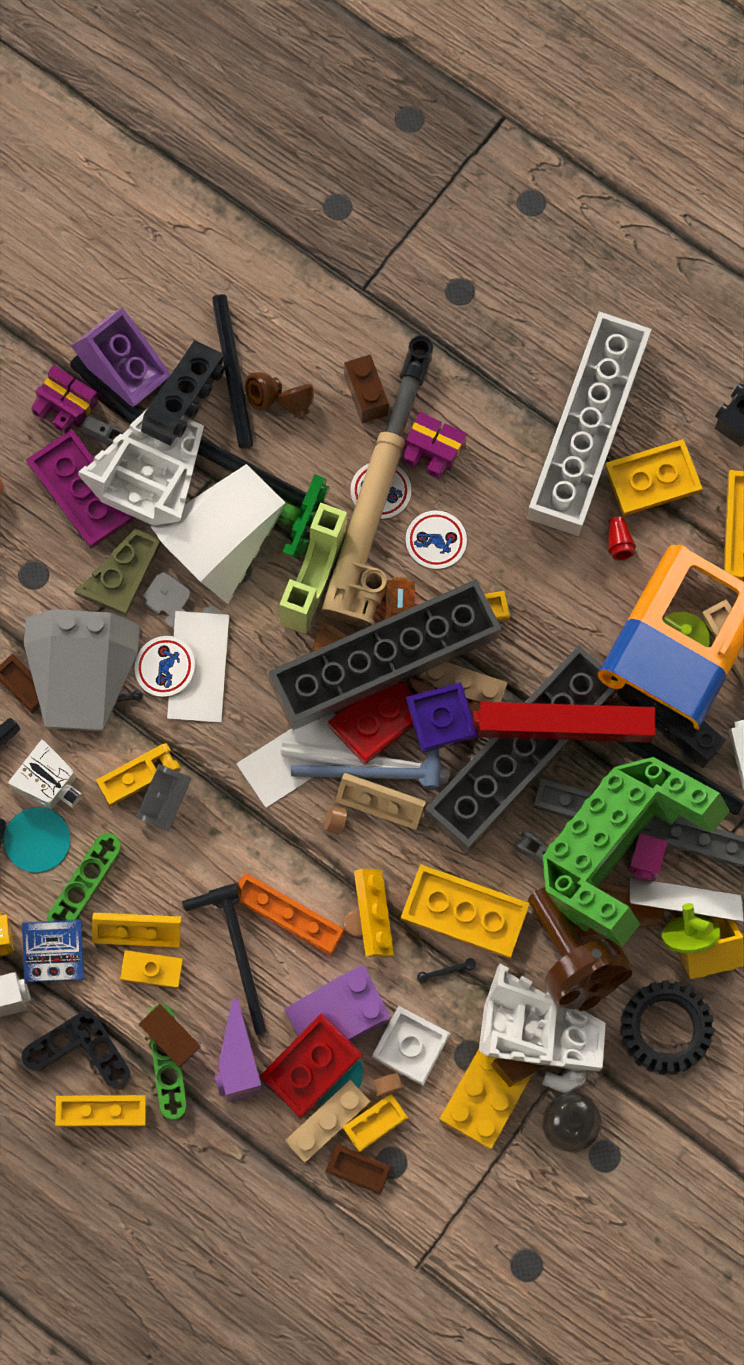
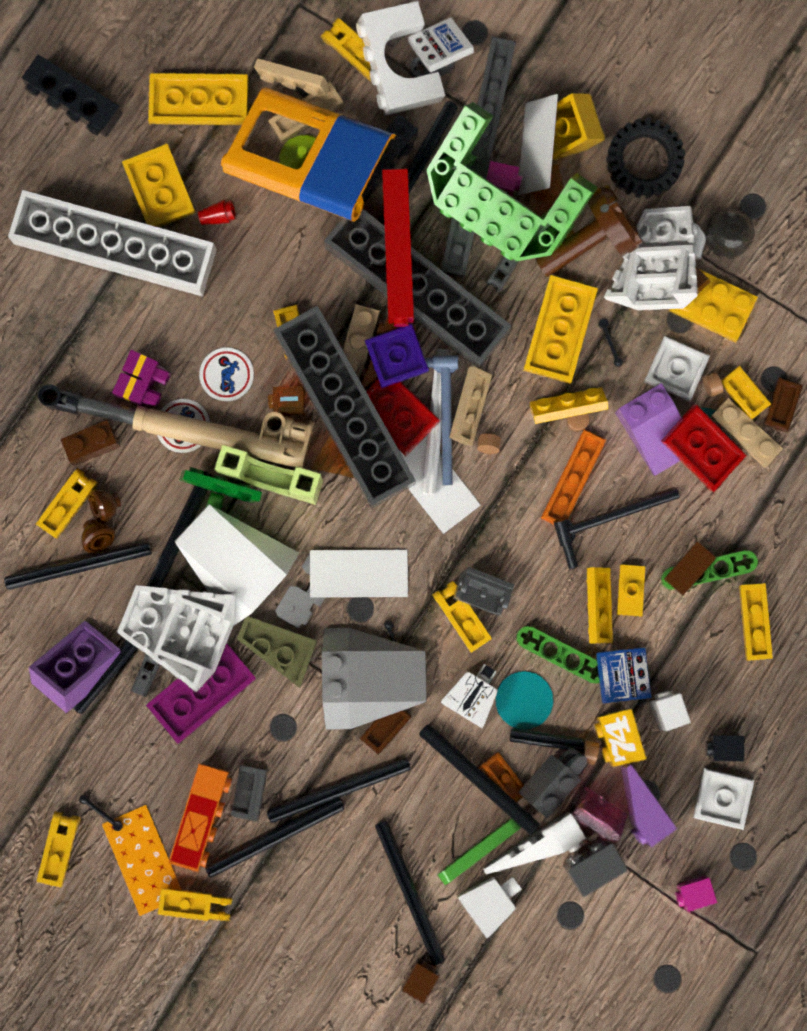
camera: 90 degrees left, 10 degrees up
(66, 397) = (112, 725): magenta hips -> none
(76, 1039) = (695, 647): black beam -> none
(164, 666) = (361, 602): white sticker -> none
(182, 393) = (73, 592): black brick -> none
(236, 1064) = (710, 509): medium lavender slope -> none
(300, 361) = (66, 504): none -> yellow plate
(690, 932) = (570, 138): lime shield -> none

